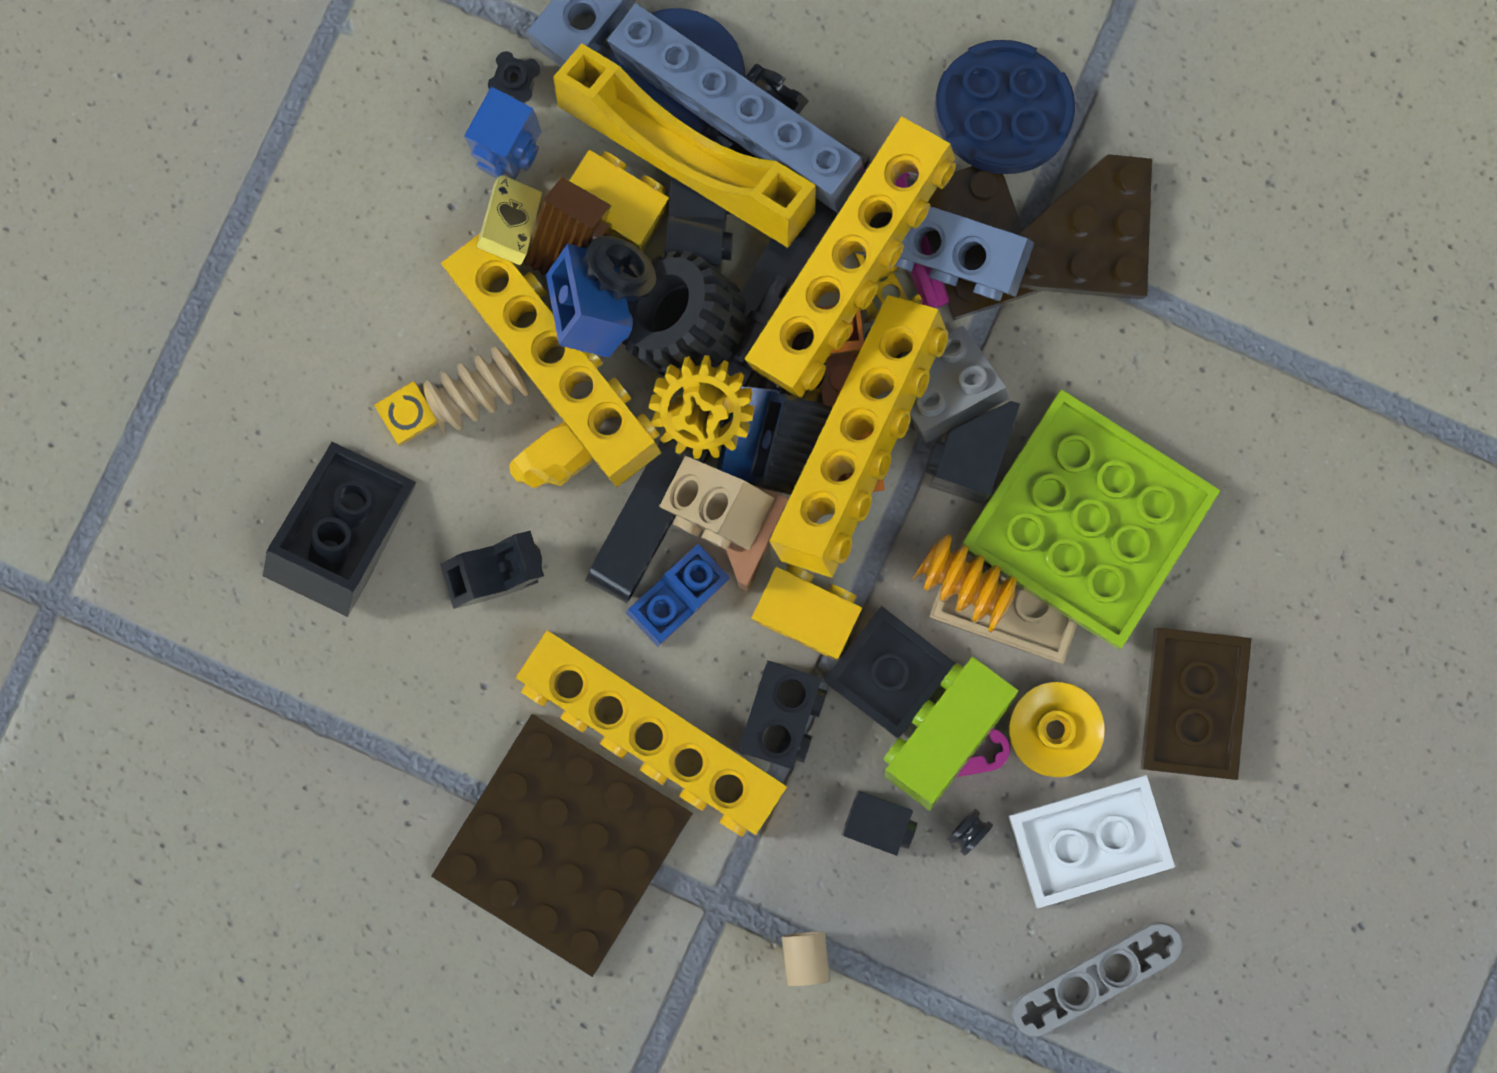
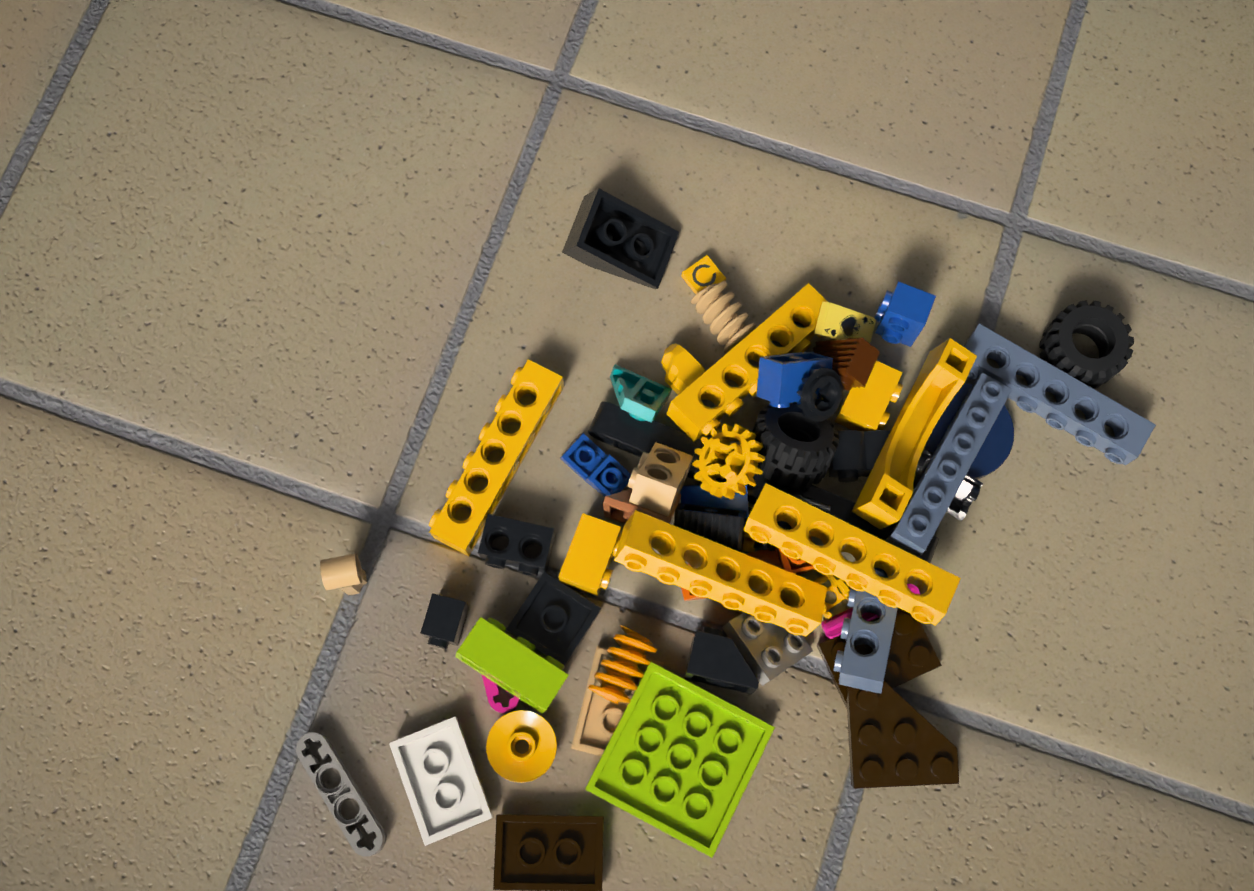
camera: 80 degrees right, 10 degrees down
(493, 570) = (601, 339): black brick -> none
(526, 71) = (943, 331): black plate -> none
(562, 845) = (418, 407): dark brown plate -> none
(582, 524) = (638, 394): none -> teal wing
(970, 832) = (442, 688): black bush -> none
(1004, 107) = (980, 667): dark blue tile -> none

